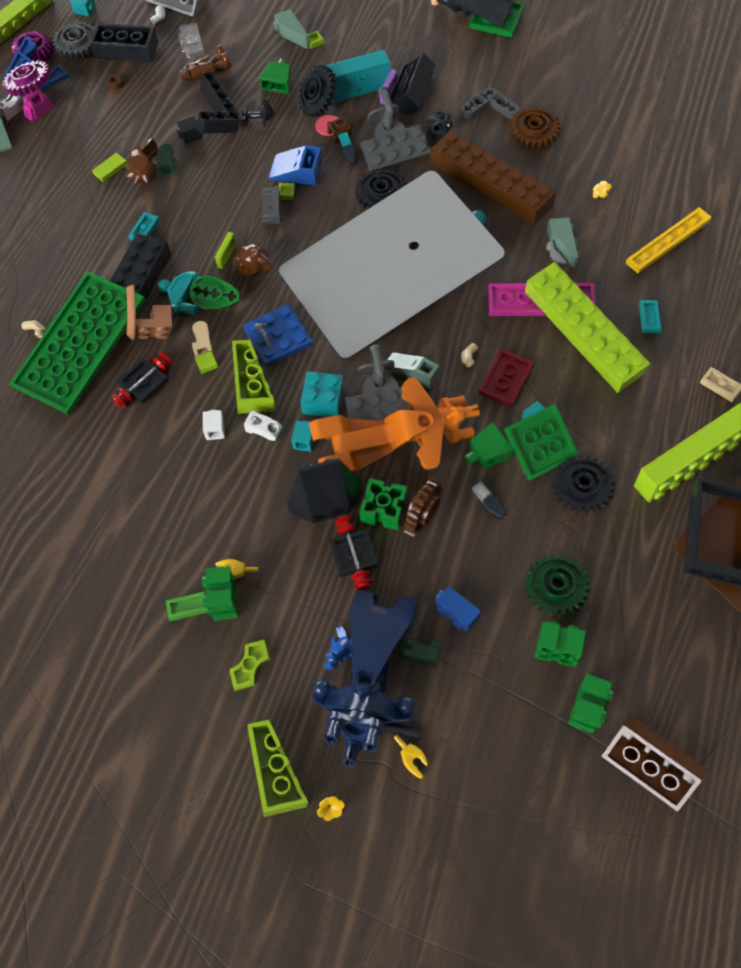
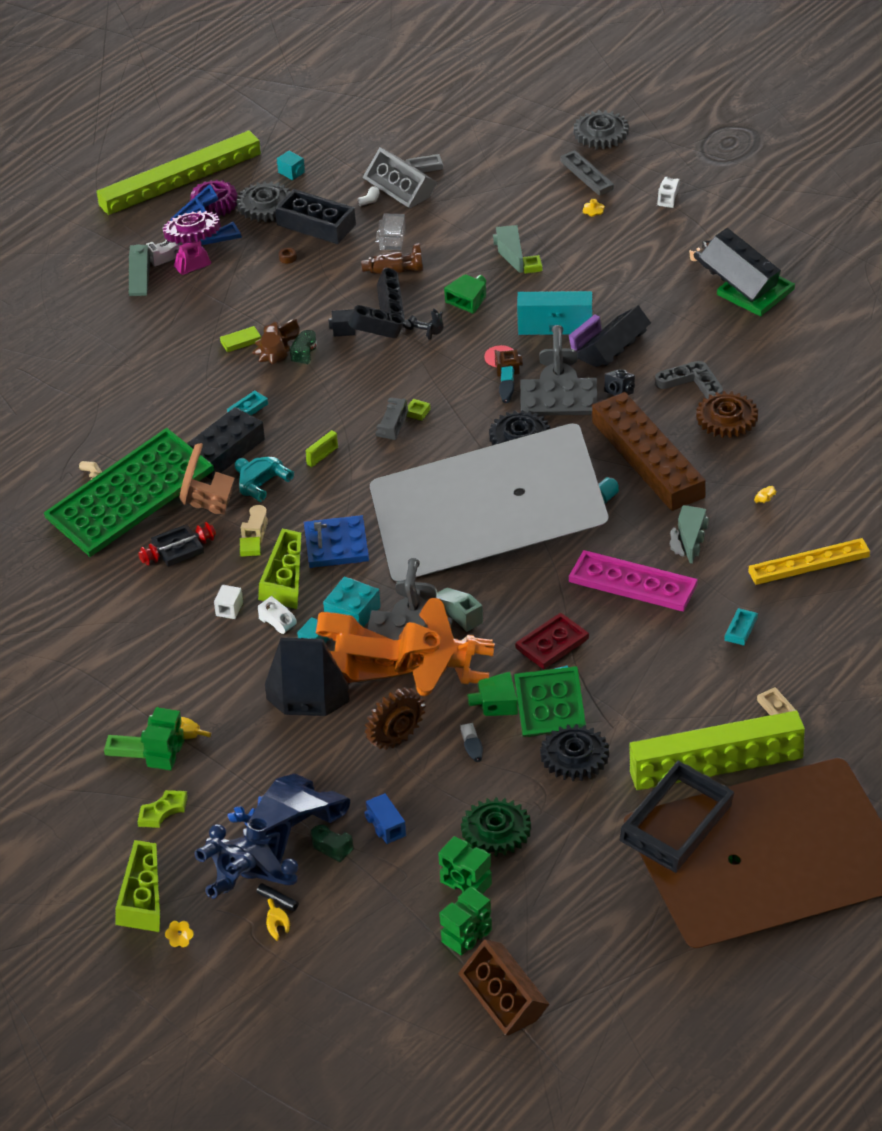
camera: 20 degrees right, 20 degrees down
(210, 302) = (291, 475): green piece -> none
(252, 260) = (343, 463): reddish brown head -> none
(297, 165) = (442, 387): blue slope -> none
(317, 91) = (499, 316): black gear -> none
(353, 552) = (310, 745): black plate -> none
(374, 511) = (354, 709): green brick -> none
(466, 355) = (523, 610): tan arm -> none
(586, 327) = (660, 614): lime brick -> none

